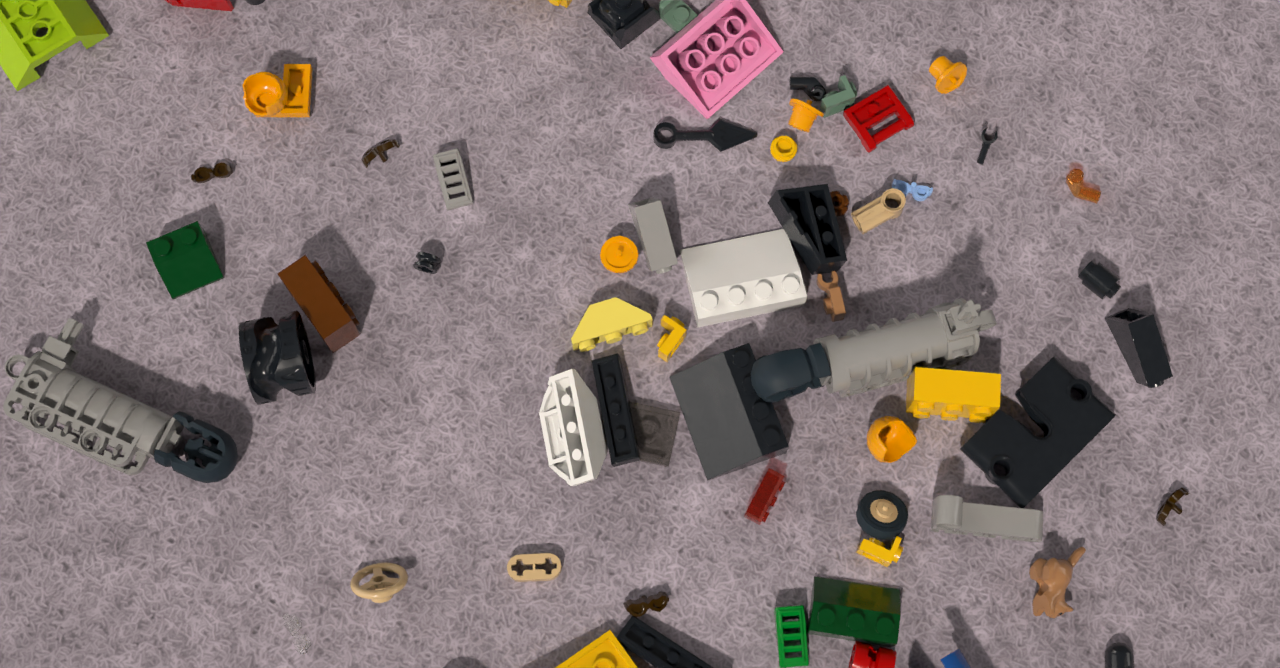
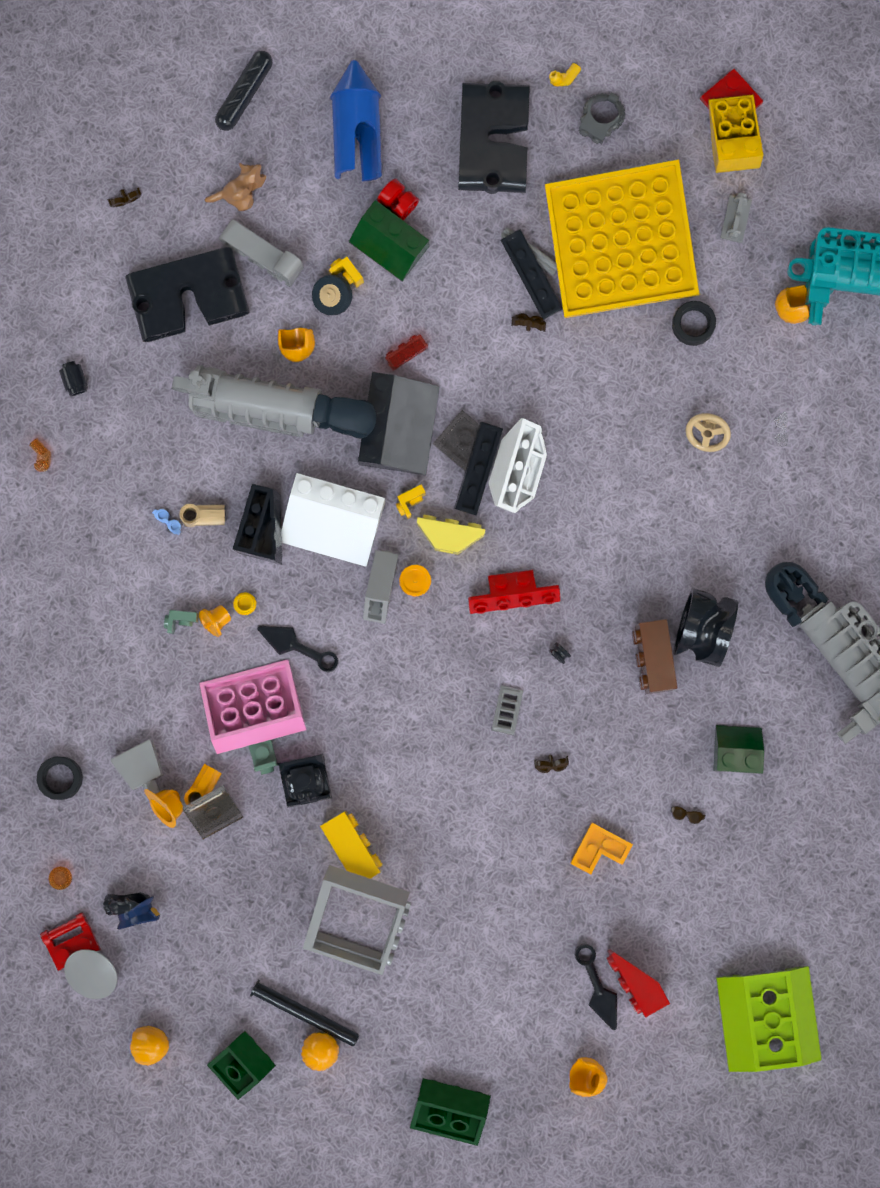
camera: 155 degrees left, 10 degrees up
(264, 94) = (619, 846): light orange hair -> none
(511, 302) = (513, 591): none -> red bracket
(533, 560) = (592, 393): tan beam -> none
(798, 611) = (433, 264): green slope -> none
(809, 85) = (195, 643): black arm -> none
(834, 302) = (276, 464): medium nougat plate -> none
(842, 201) = (224, 538): reddish brown plate -> none
(872, 112) = (159, 596): red plate -> none
(947, 74) = (87, 595): light orange piece -> none
(953, 394) = (233, 347): yellow brick -> none
(985, 146) = (89, 527): black hand -> none
(1141, 346) = (76, 316): black slope -> none

